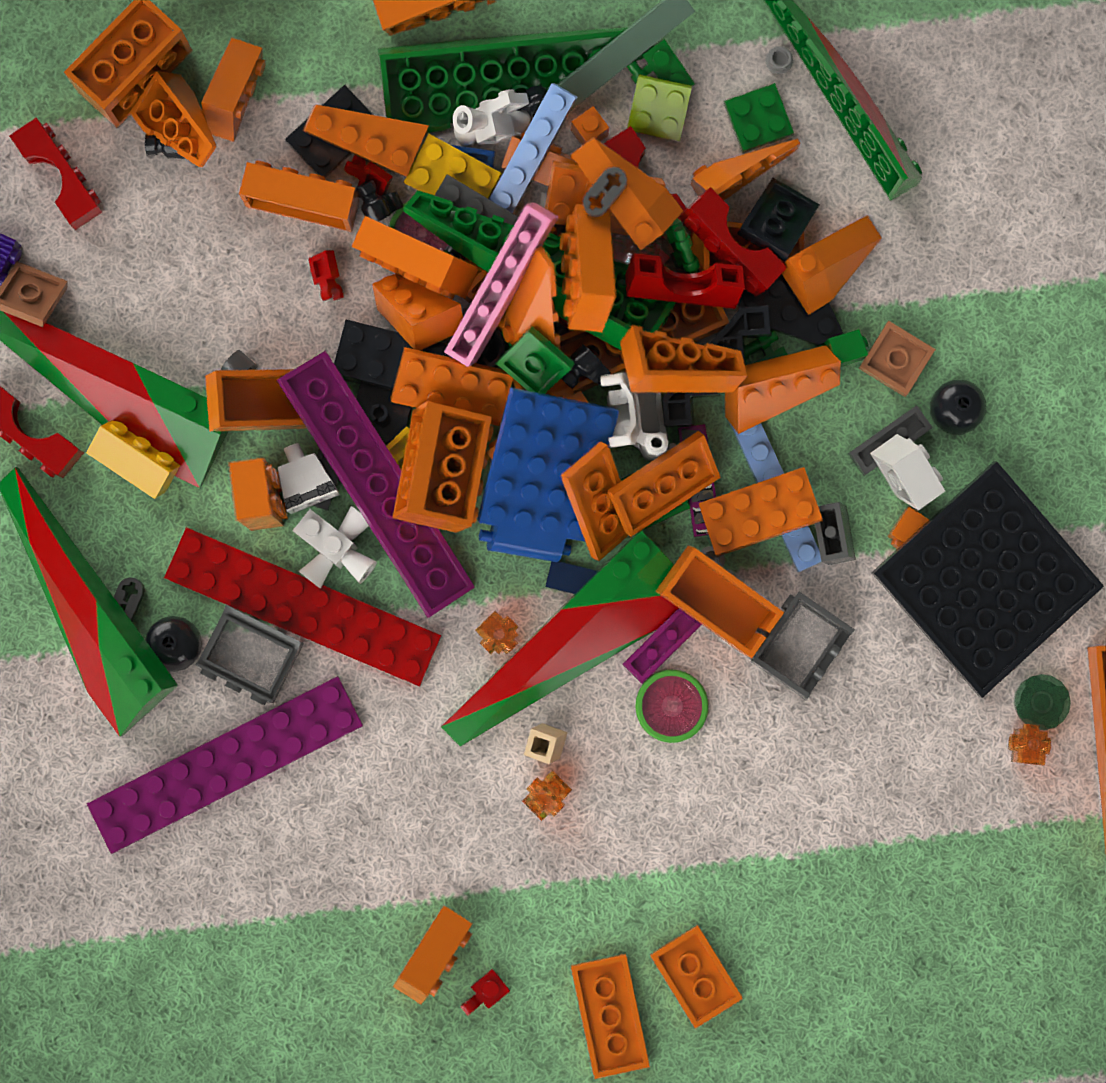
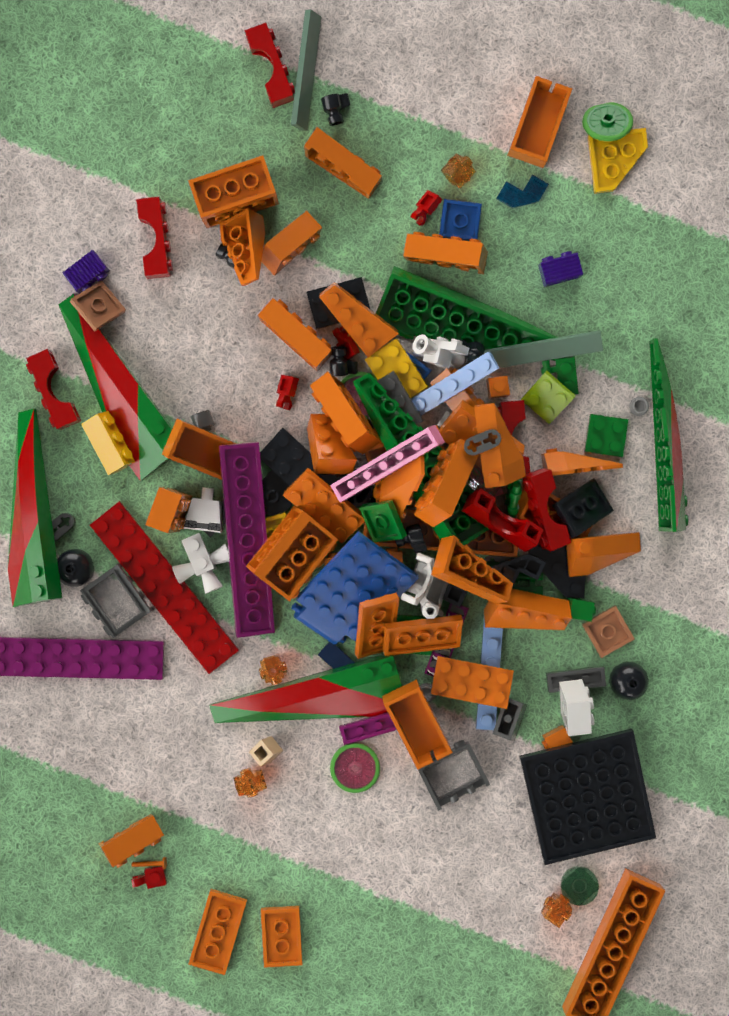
camera: 30 degrees right, 5 degrees up
(490, 965) = (163, 863): none -> orange pin

